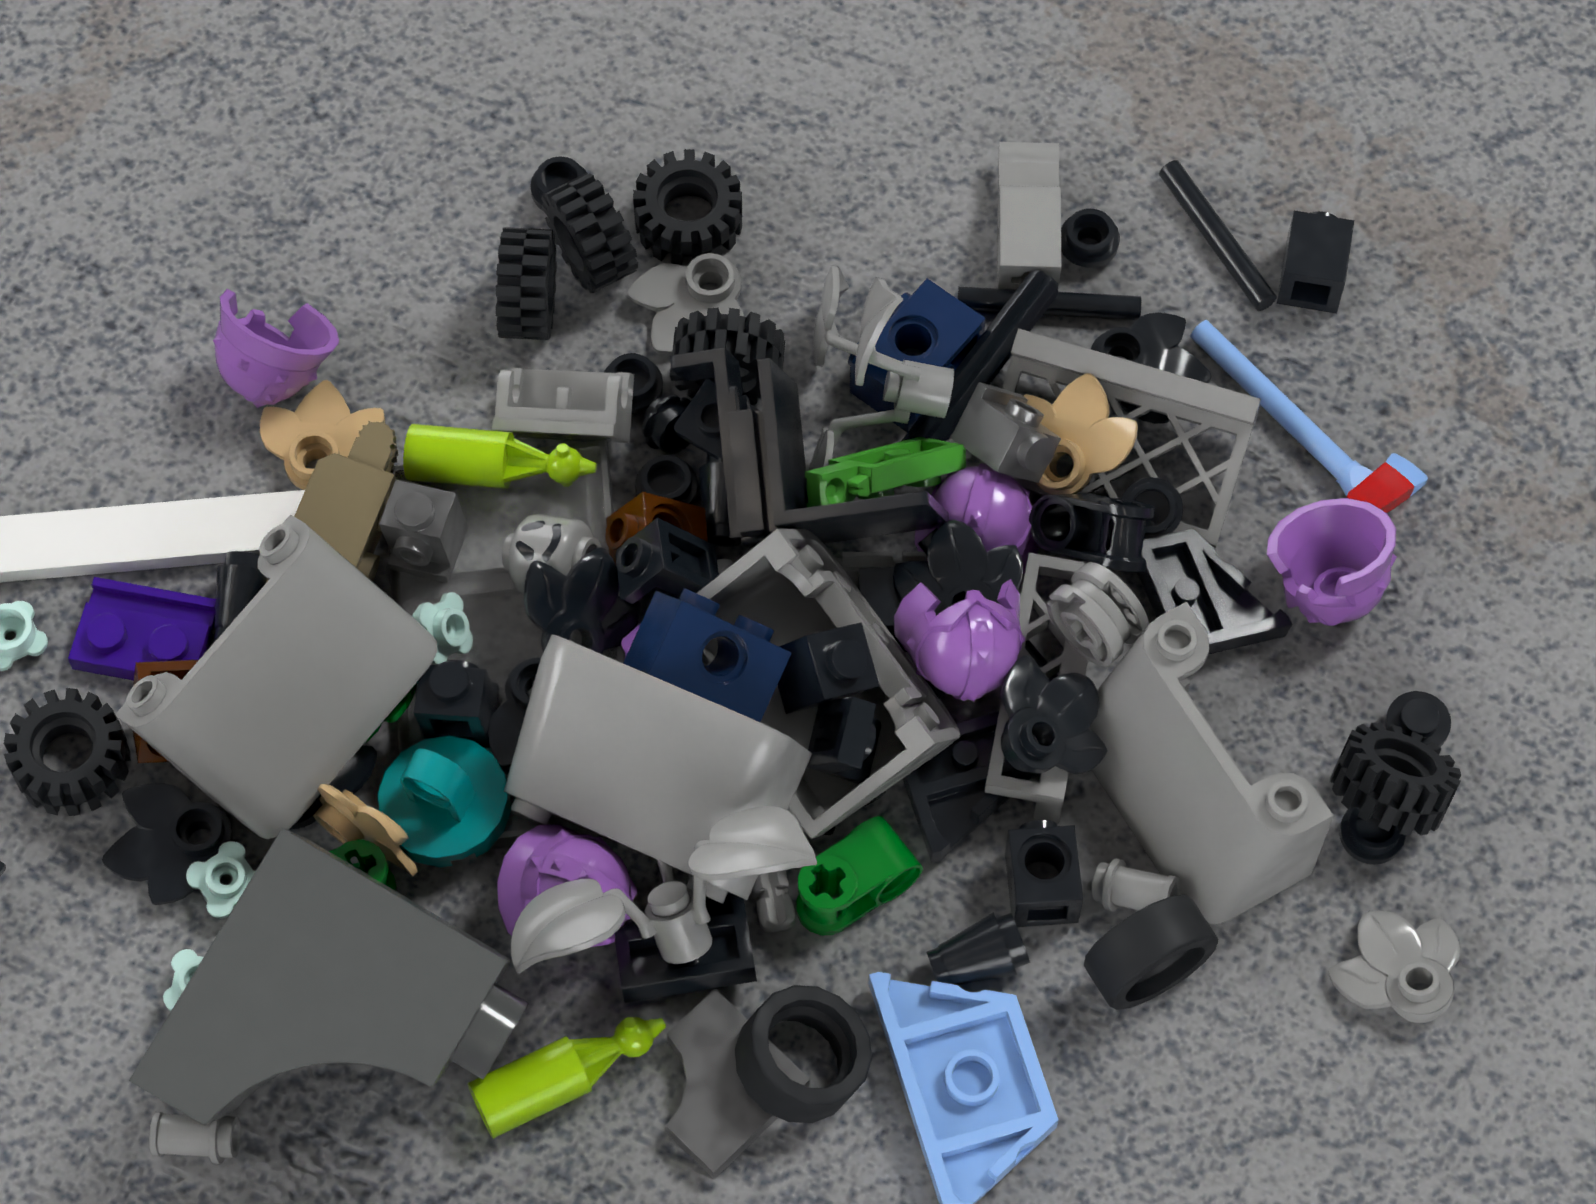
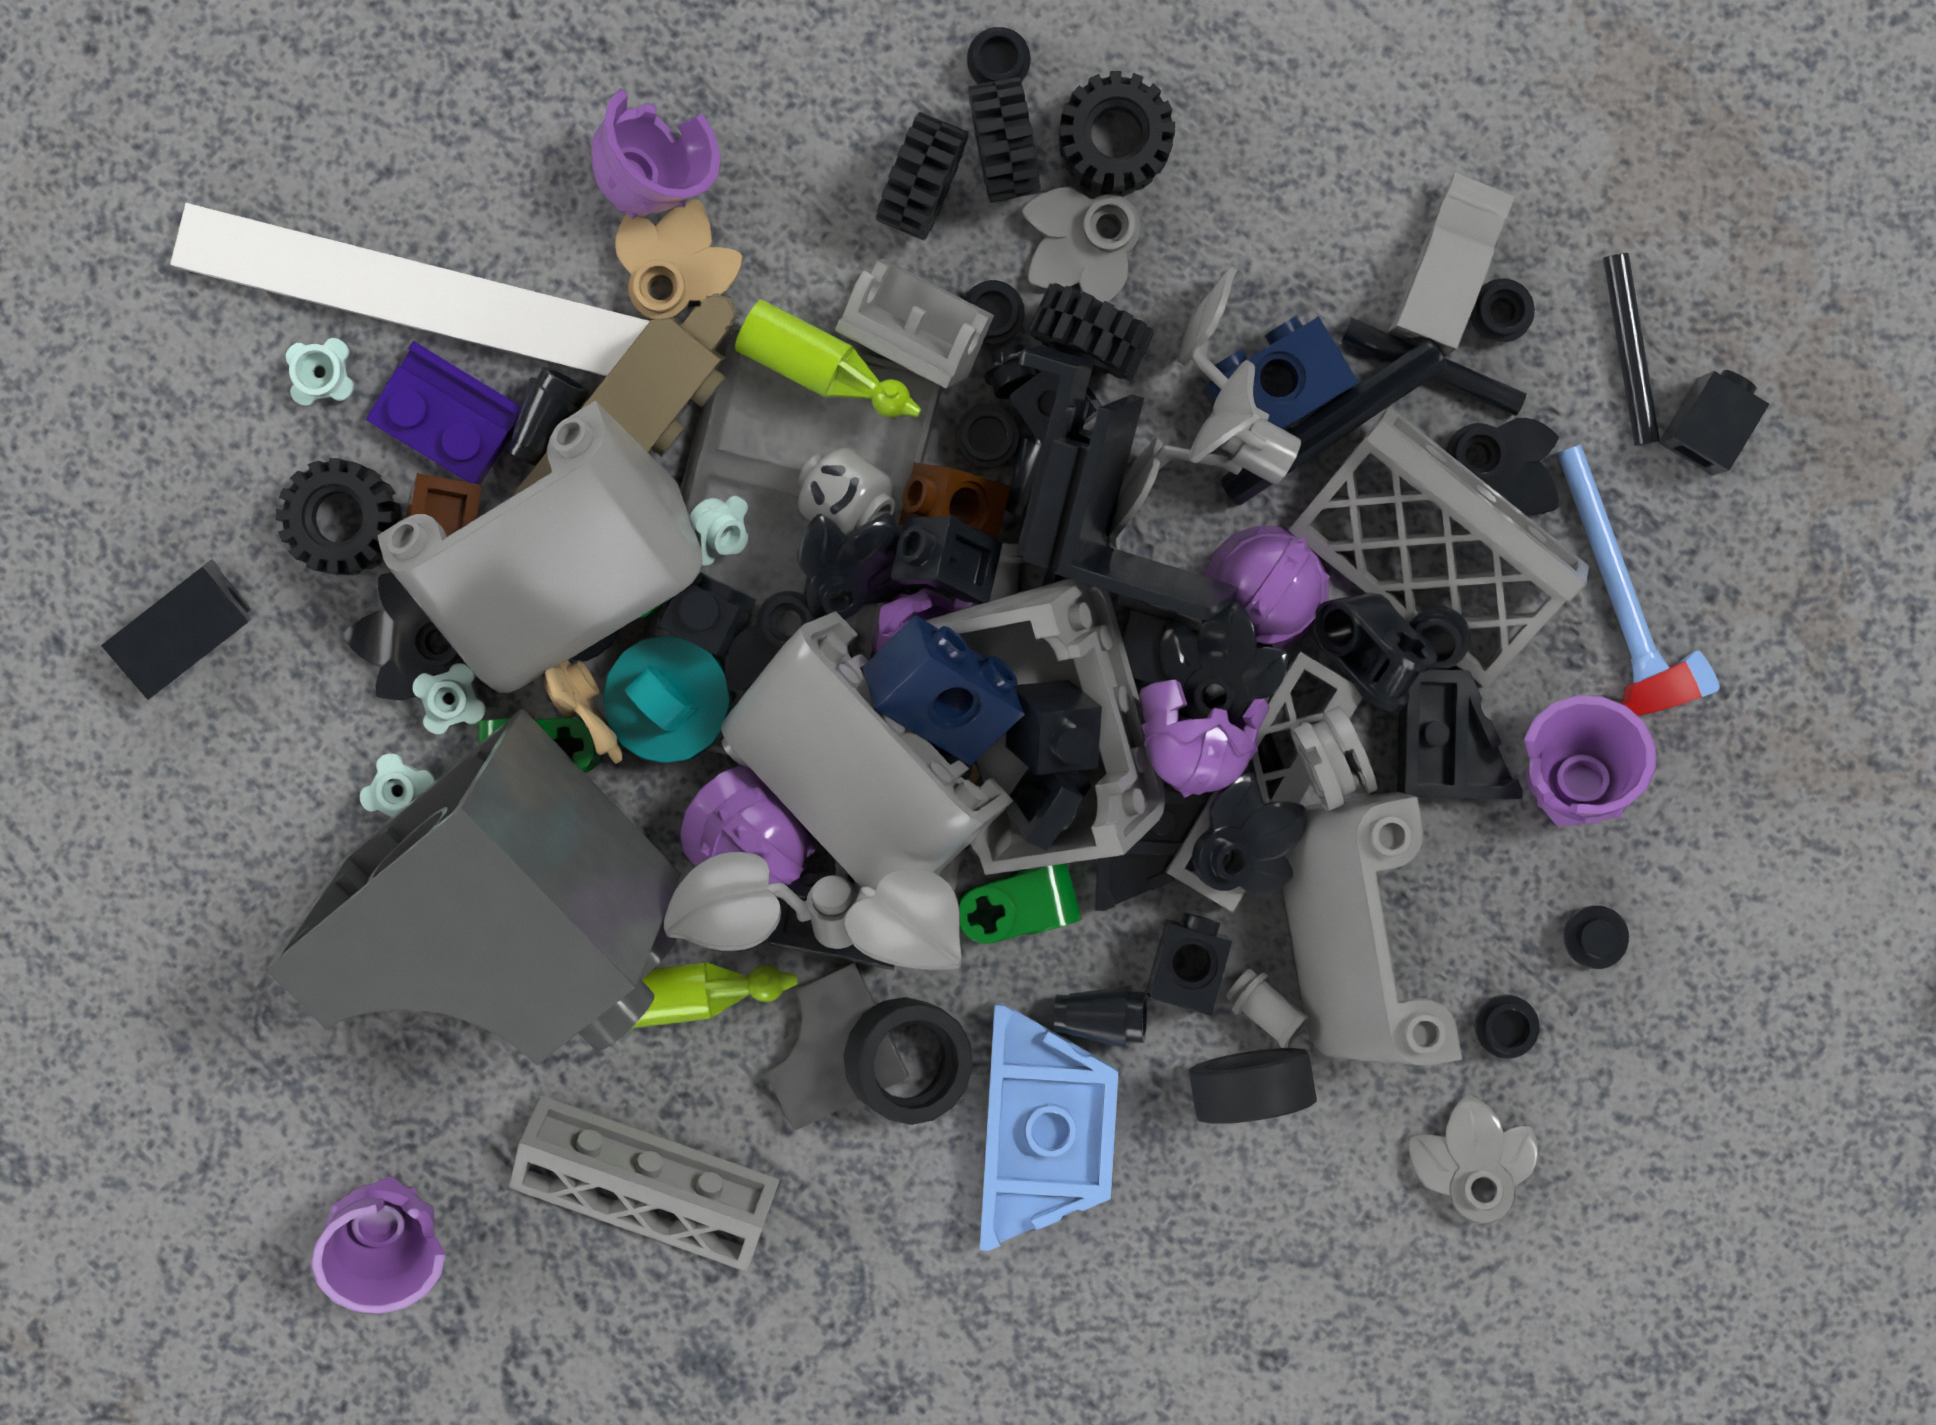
camera: 25 degrees right, 25 degrees up
(423, 530) = (732, 420): flat silver brick -> none
(881, 469) = (1190, 526): bright green hinge -> none
(1006, 433) = (1326, 527): flat silver brick -> none
(1086, 434) = (1400, 538): tan plate -> none
(1395, 779) = (1568, 984): black tyre -> none

